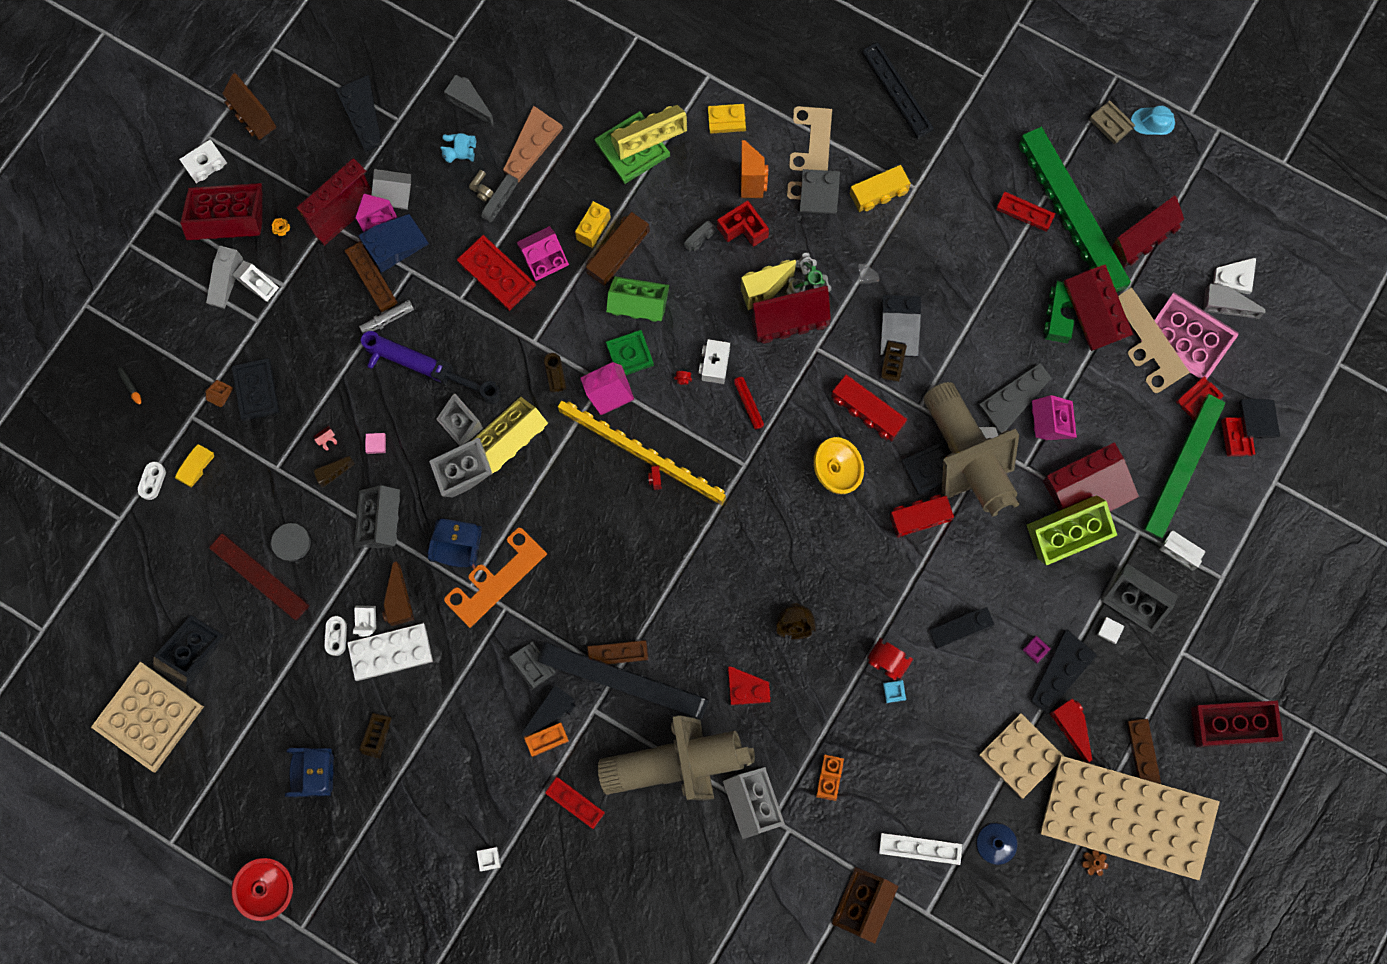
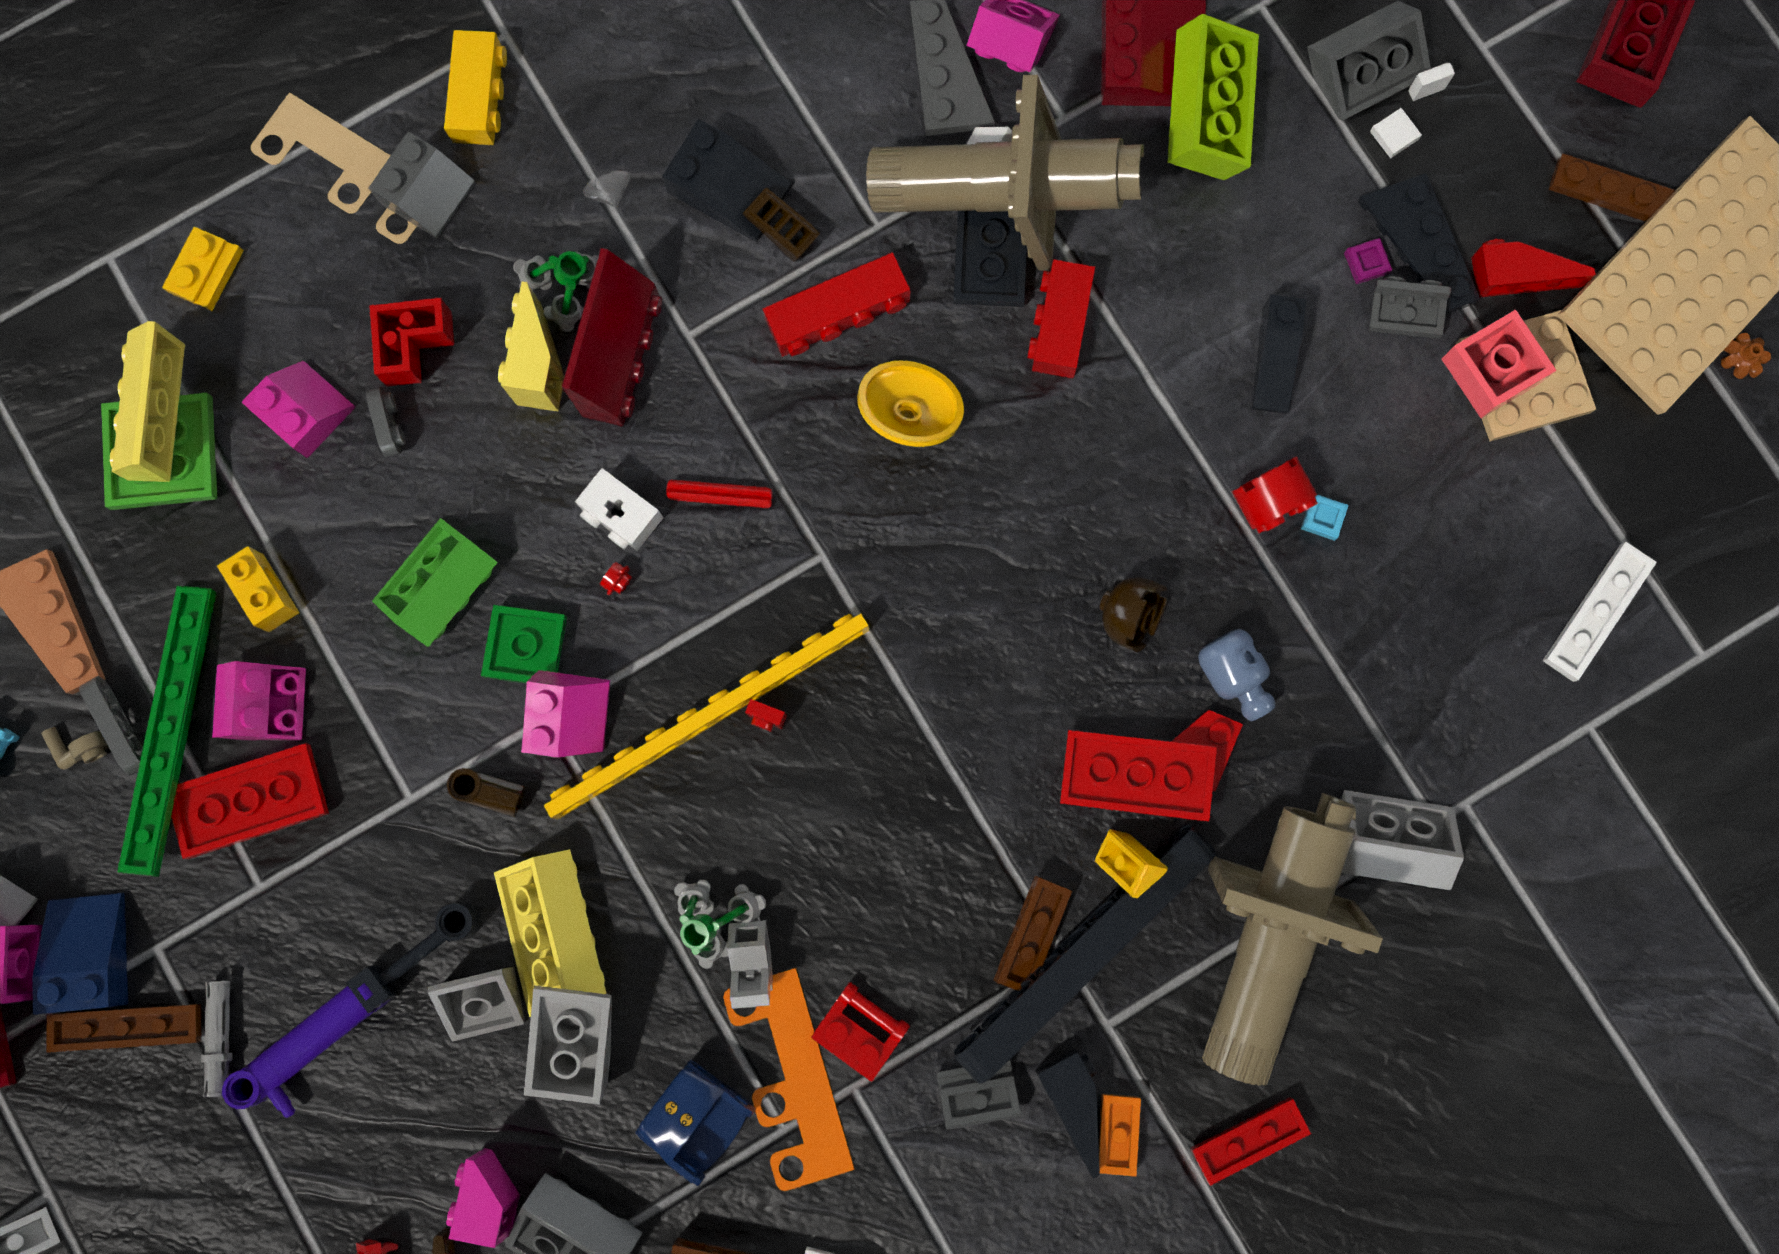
camera: 60 degrees left, 5 degrees up
(374, 469) = (484, 1202): none -> dark pink slope
(375, 443) = (435, 1173): bright pink tile -> none
(509, 221) = (167, 732): none -> green tile
(526, 597) = (851, 1041): none -> red plate
(538, 531) = (750, 964): none -> light grey brick
(541, 499) = (700, 930): none -> plant
(617, 249) = (325, 569): reddish brown brick -> none
(675, 679) = (1129, 863): none -> yellow slope
(685, 195) = (299, 406): none -> dark pink slope
(718, 663) = (1138, 775): none -> red plate
(753, 172) = (323, 270): orange slope -> none
(794, 684) = (1237, 670): none -> sand blue piece
(830, 777) = (1413, 694): orange slope -> none
(865, 905) = (1649, 748): reddish brown slope -> none
(987, 848) = (1633, 500): dark blue dish -> none
(1013, 733) = (1498, 364): none -> coral brick
(1021, 680) = (1409, 307): none -> dark grey bracket
(1146, 634) = (1431, 81): none -> white tile

